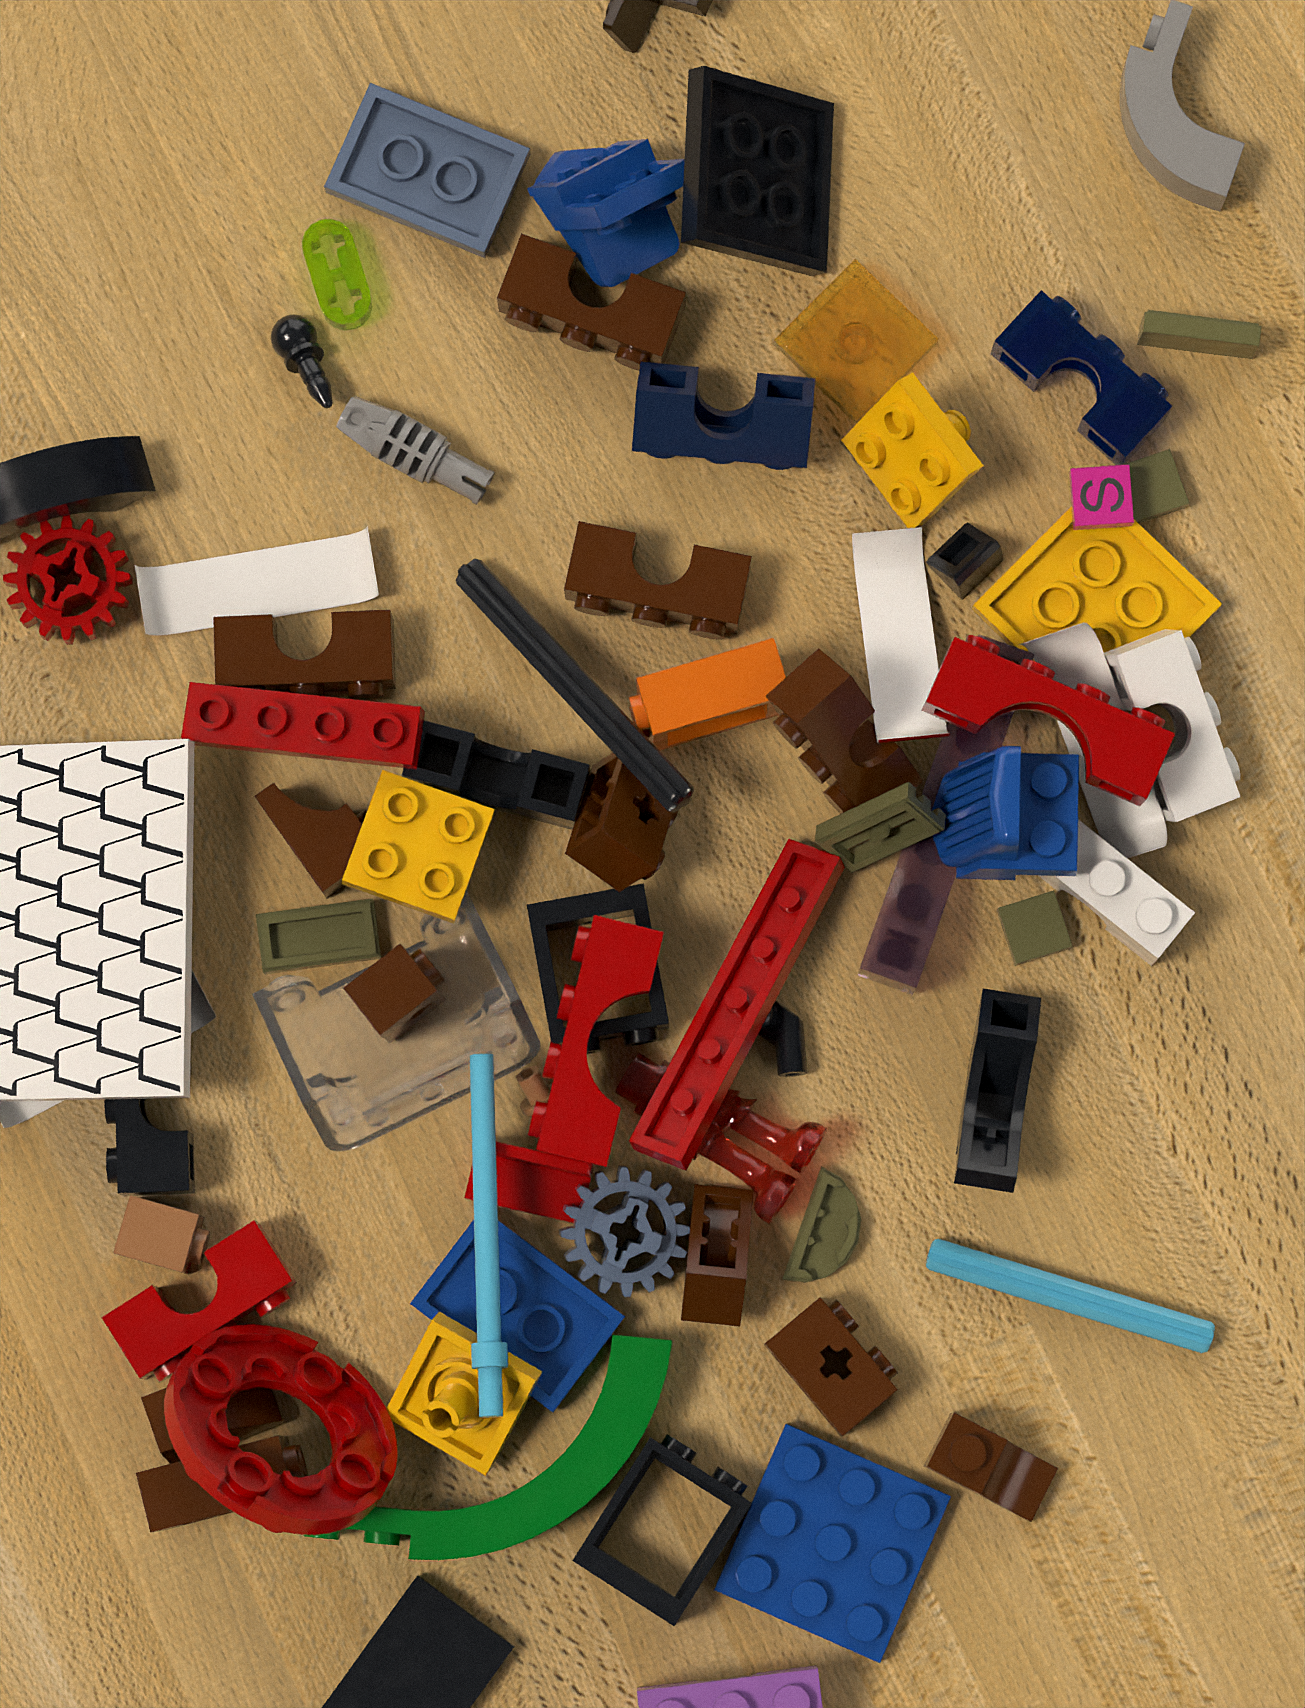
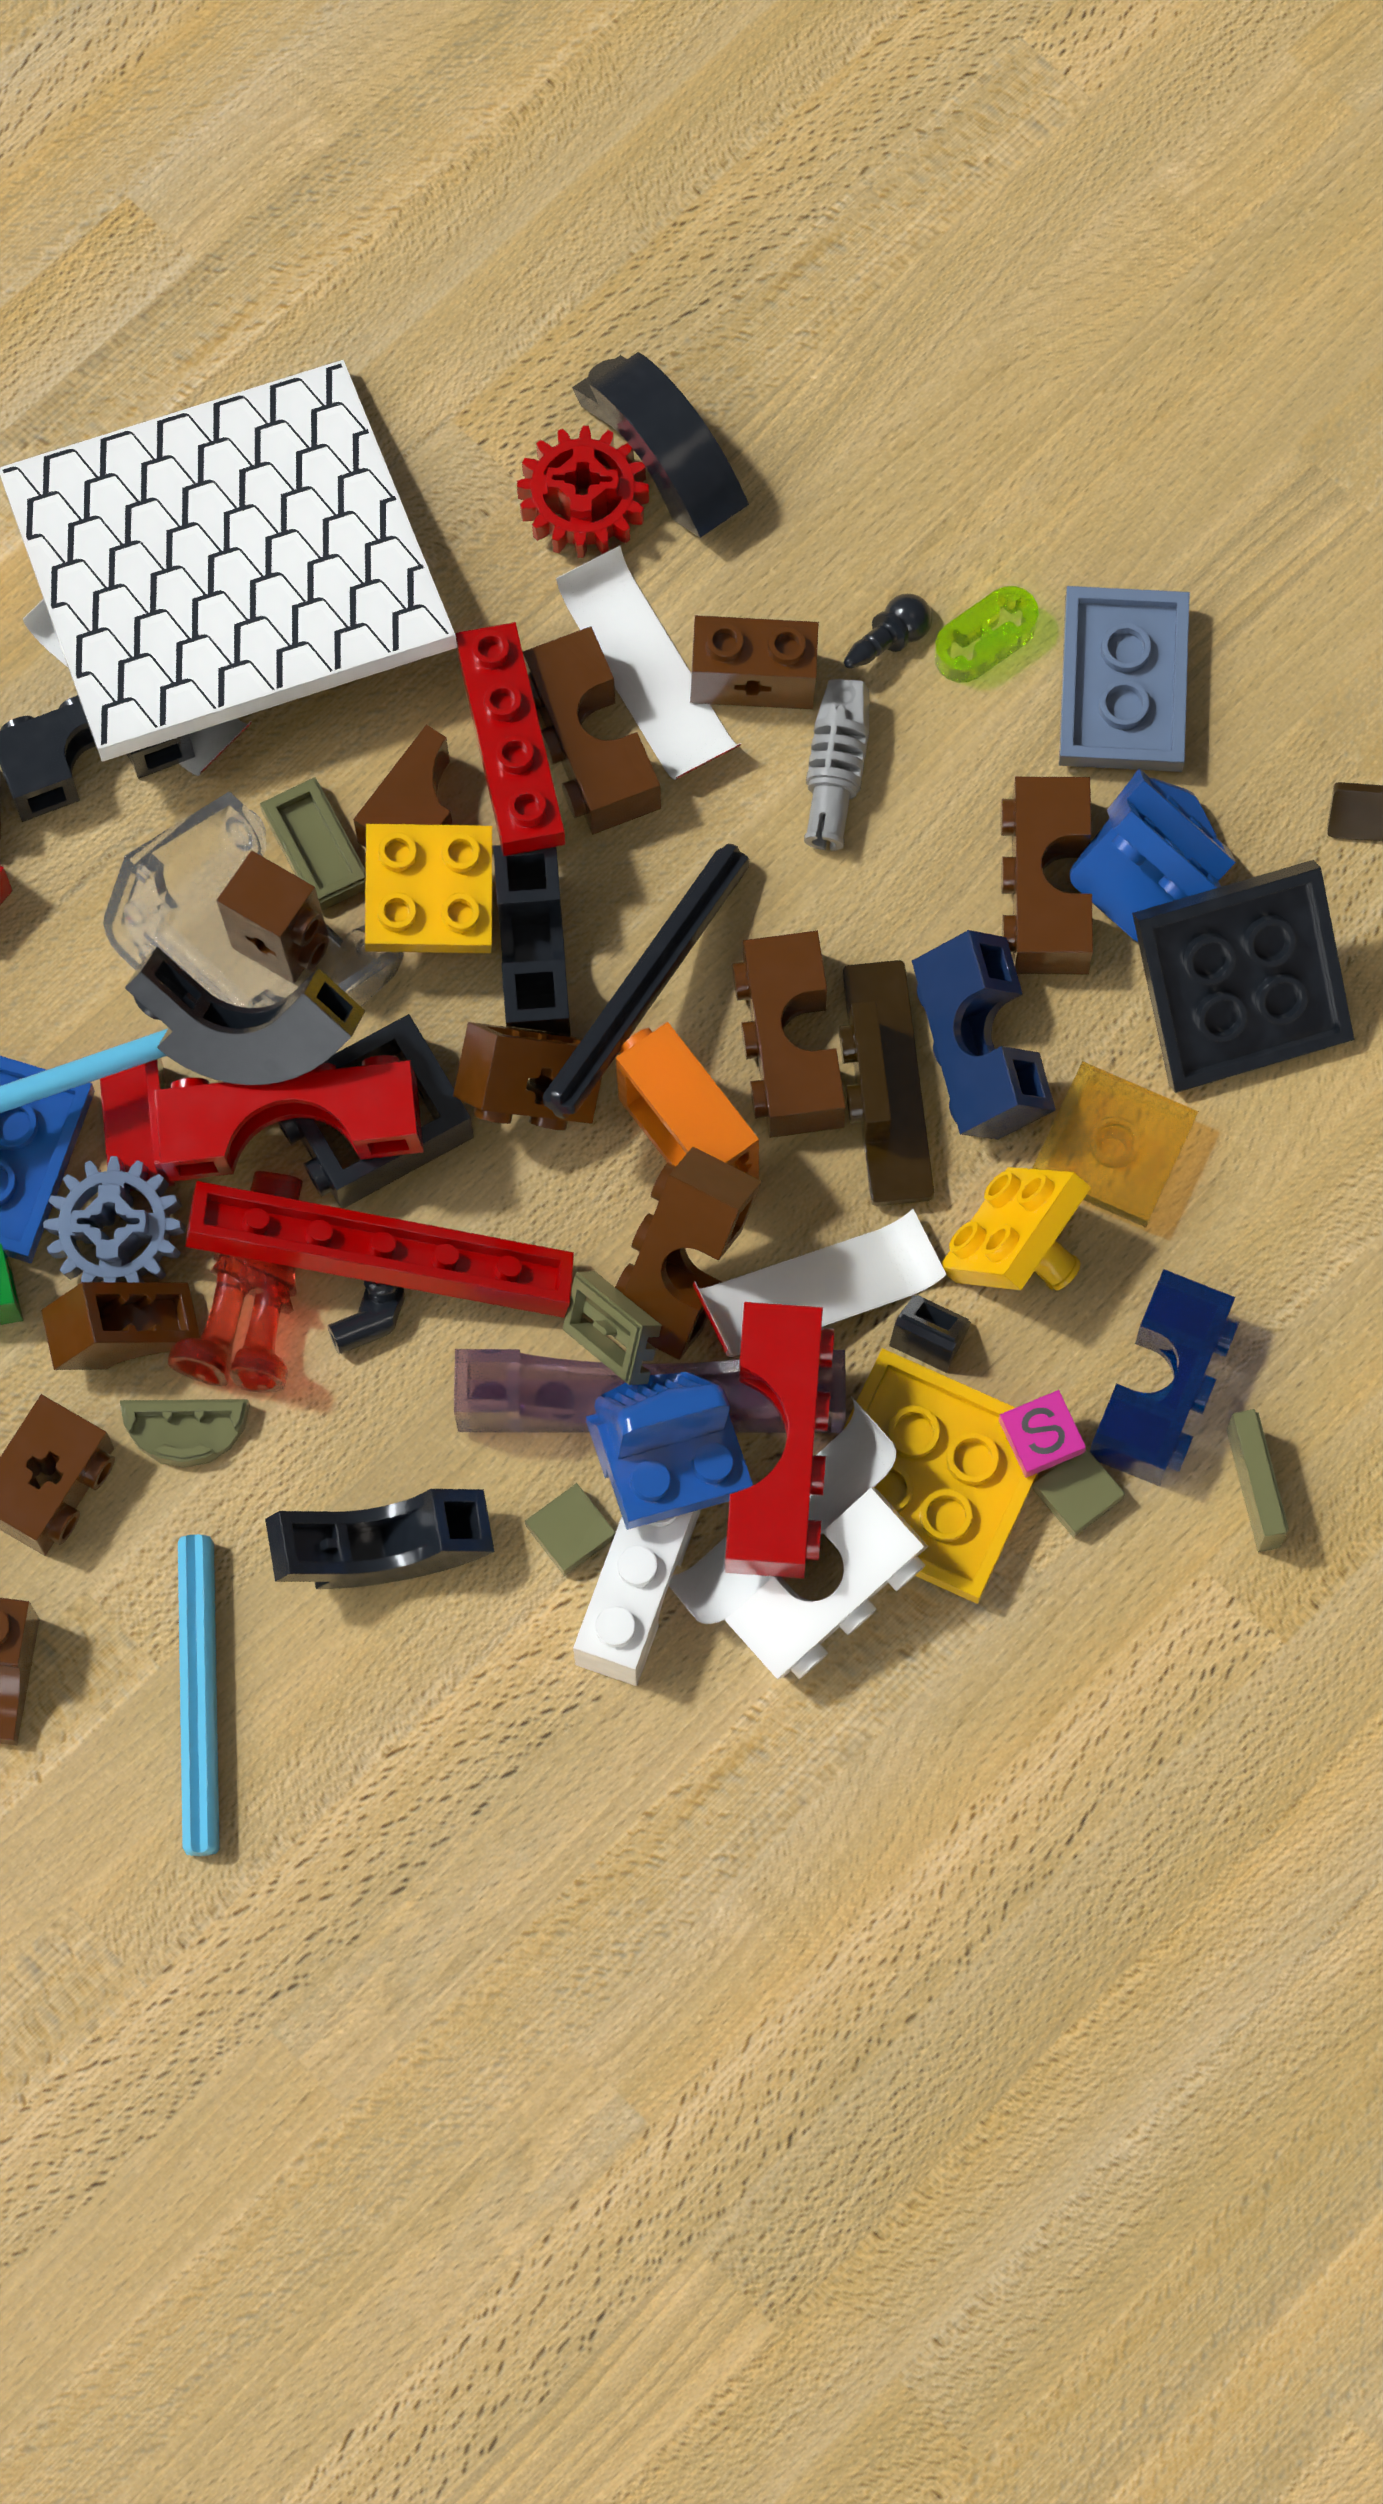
camera: 70 degrees right, 10 degrees down
(295, 486) = (754, 662): none -> reddish brown brick
(526, 1051) = (238, 1041): none -> black arch
(727, 513) = (887, 1082): none -> dark brown bracket

